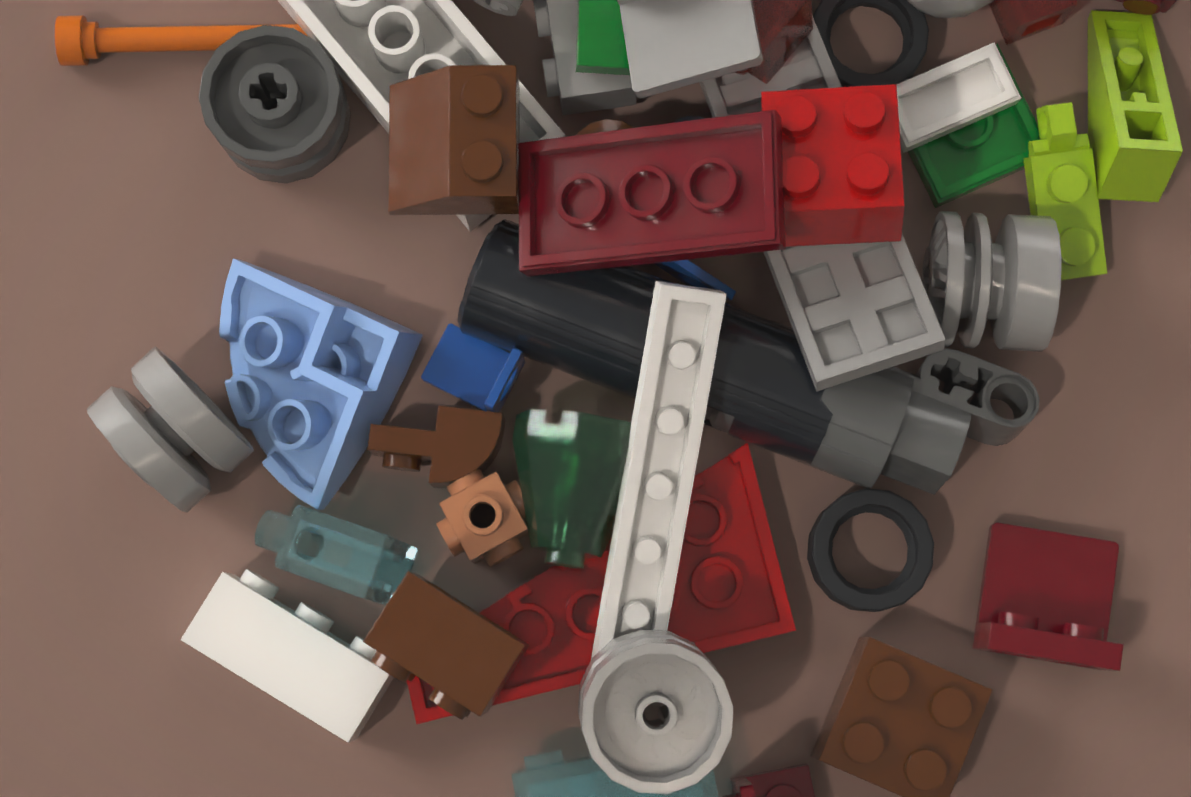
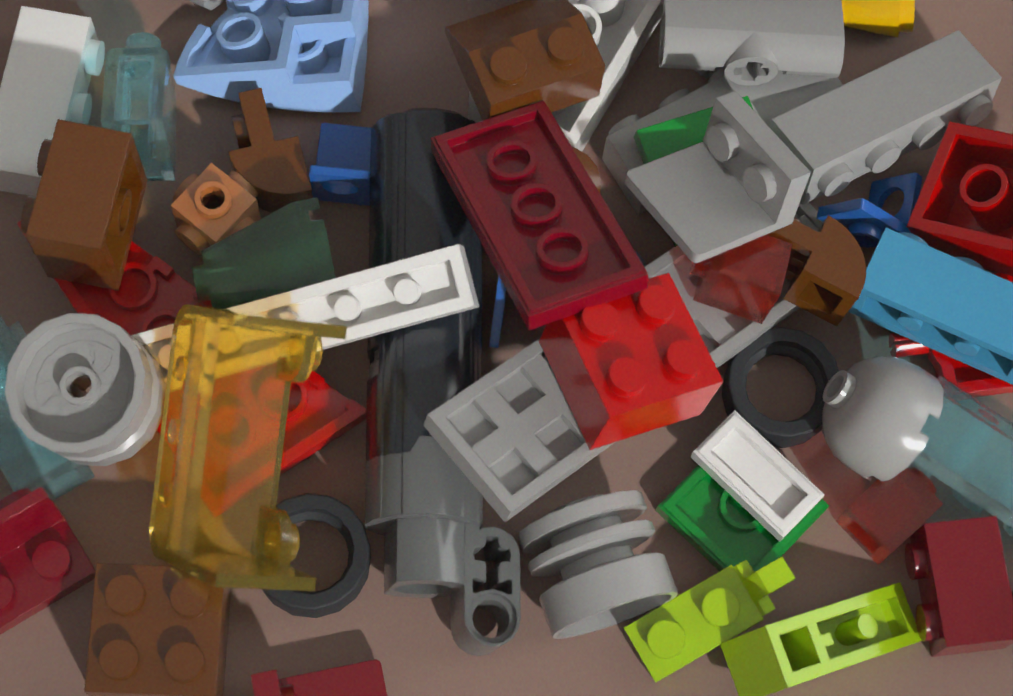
camera: 60 degrees right, 10 degrees down
(764, 601) = (226, 443): none -> clear yellow windscreen

